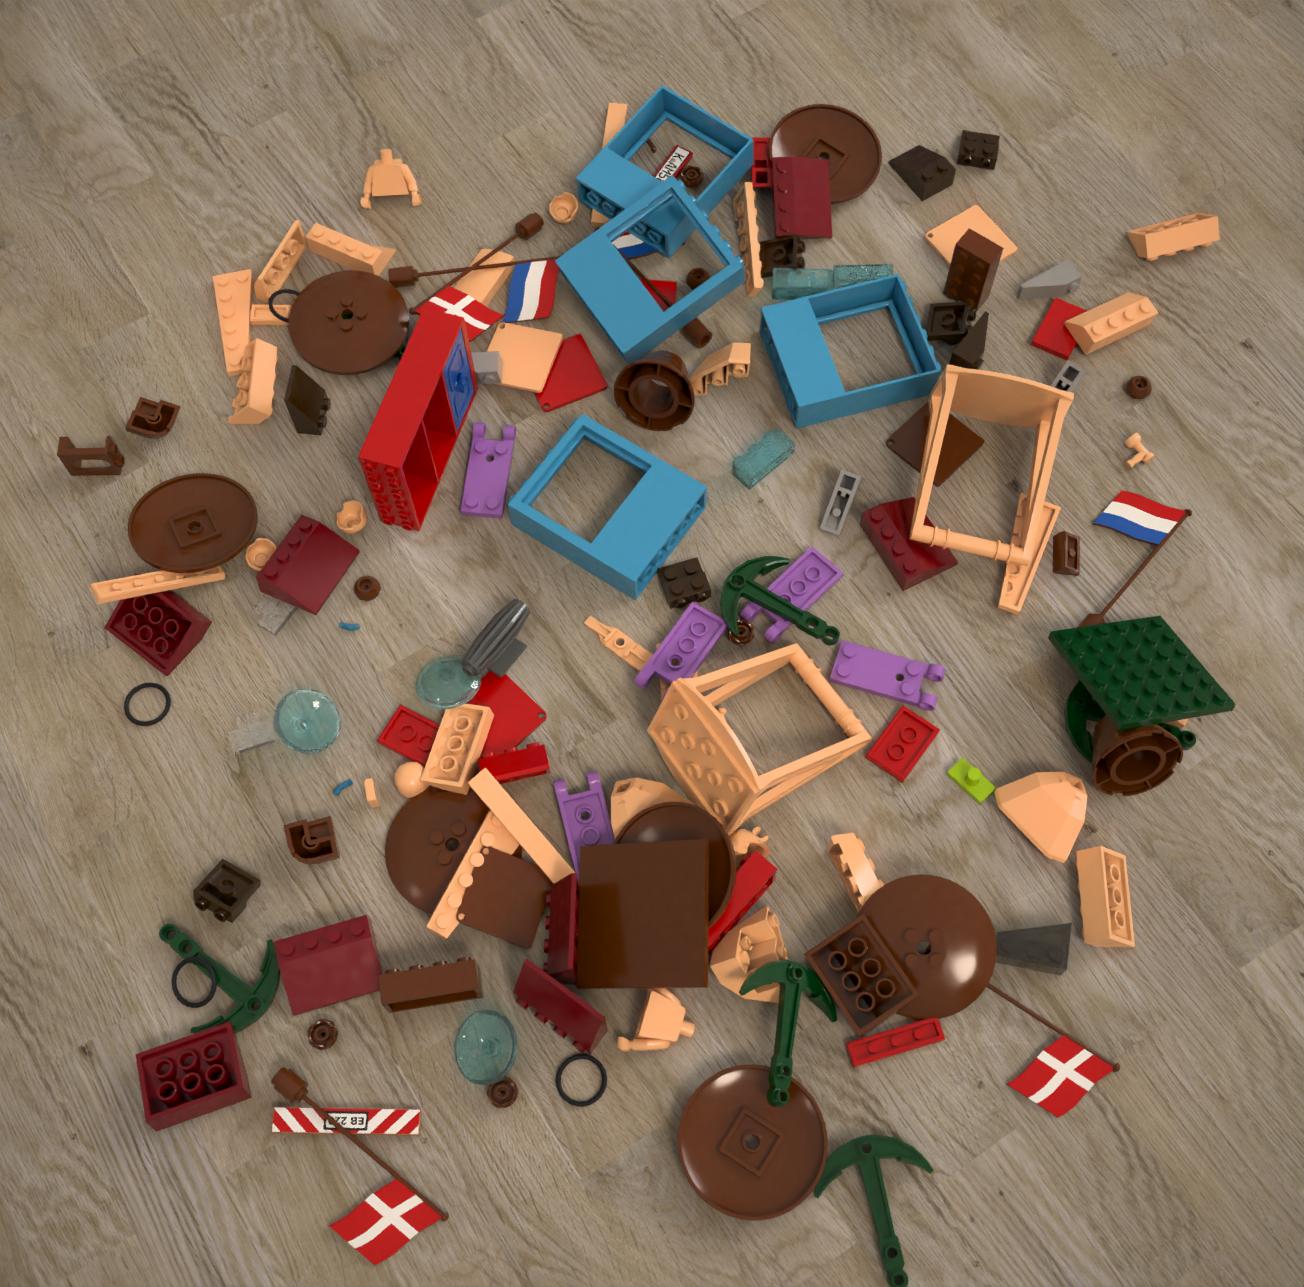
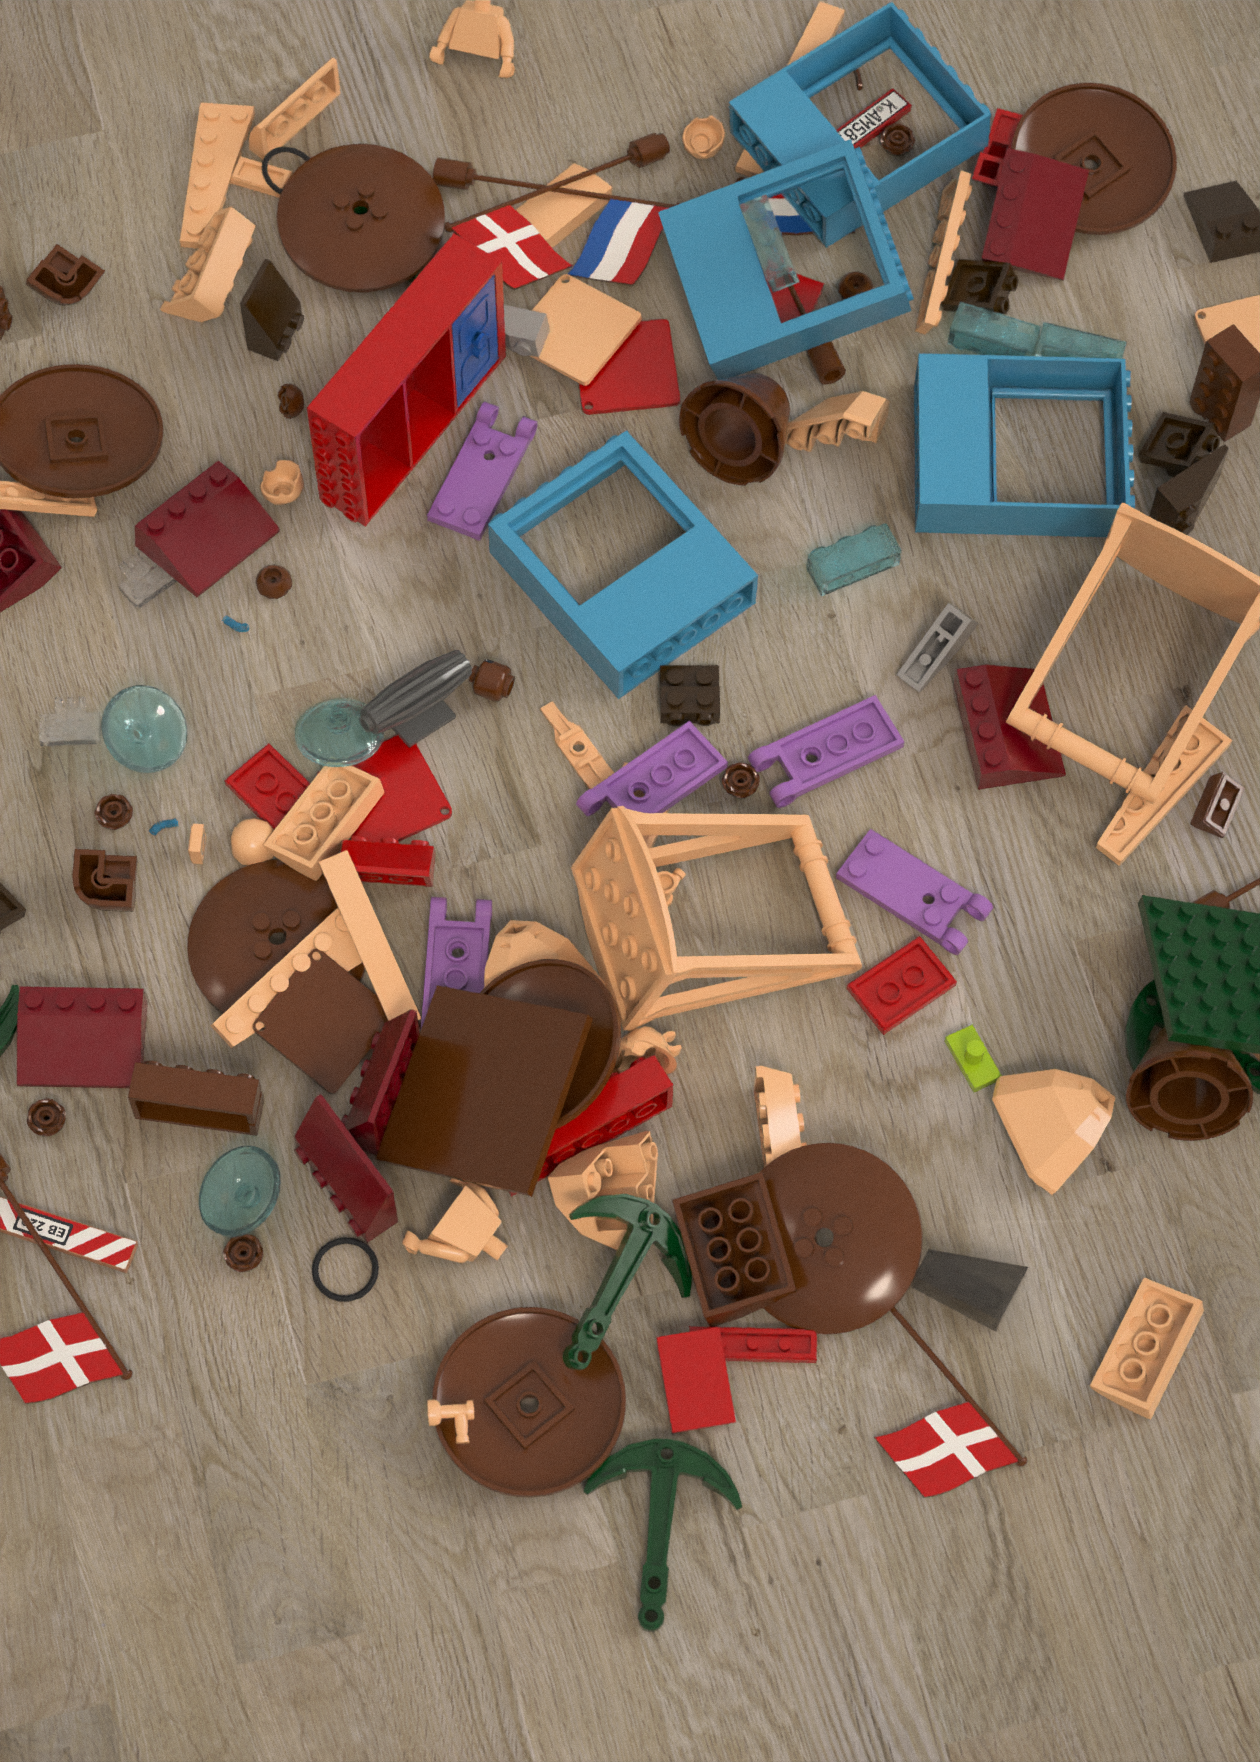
camera: 15 degrees right, 0 degrees up
(259, 553) = (149, 495): light nougat hair -> none
(303, 781) = (107, 806): none -> reddish brown plate
(339, 459) = (291, 400): none -> reddish brown plate
(347, 250) = (393, 120): light nougat wedge -> none
(544, 613) = (492, 680): none -> reddish brown head
(639, 259) = (769, 243): none -> clear light blue brick
(706, 1168) = (459, 1412): none -> light nougat piece
(768, 600) = (781, 739): dark green piece -> none
(865, 1083) = (695, 1380): none -> red tile
(957, 445) = (1115, 615): reddish brown piece -> none
(1104, 898) = (1089, 1253): light nougat slope -> none
(1170, 954) = (1147, 1347): none -> light nougat slope

